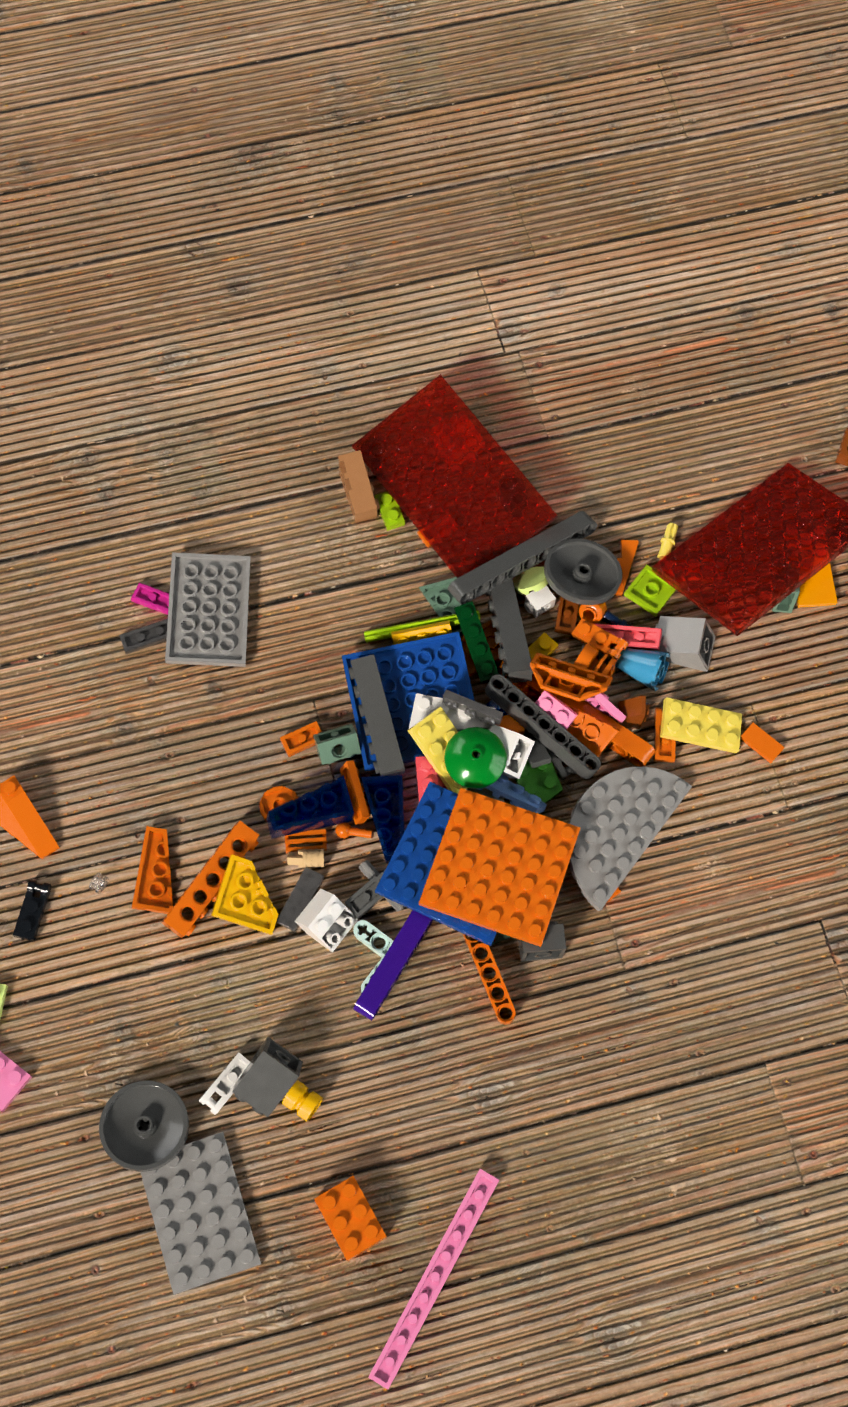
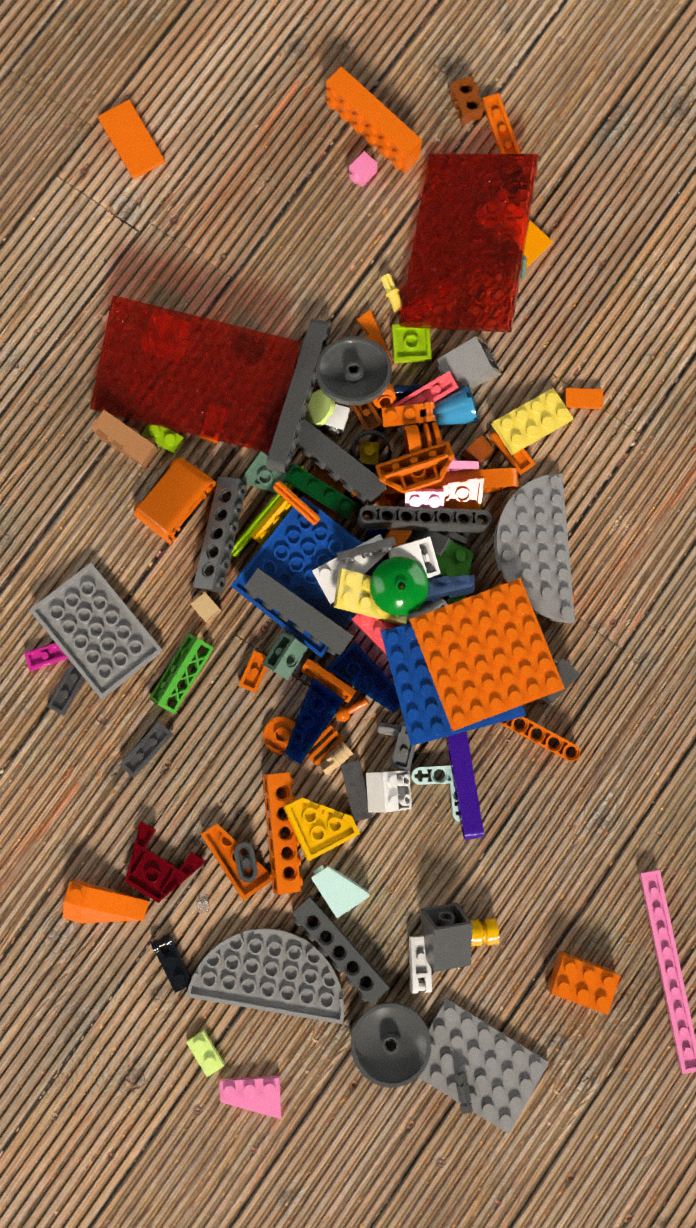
camera: 40 degrees left, 15 degrees up
(82, 828) = (154, 874): none -> dark red wing
(101, 986) = (270, 973): none -> light grey plate
(161, 877) = (244, 862): none -> dark grey plate
(164, 728) = (146, 749): none -> flat silver plate
(167, 1219) = (463, 1092): none -> dark grey axle
(176, 1069) = (378, 984): none -> dark grey brick
(214, 964) = (338, 889): none -> light aqua slope
(242, 687) = (168, 683): none -> bright green fence
(308, 659) = (205, 606): none -> tan brick
(356, 559) = (174, 499): none -> orange windscreen
(368, 613) = (220, 534): none -> dark grey brick
(449, 633) = (296, 502): none -> orange axle
(545, 625) = (371, 467): none -> black tyre
(556, 285) = (131, 139): none -> orange tile
(722, 435) = (362, 169): none -> bright pink brick
(760, 405) = (373, 120): none -> orange brick

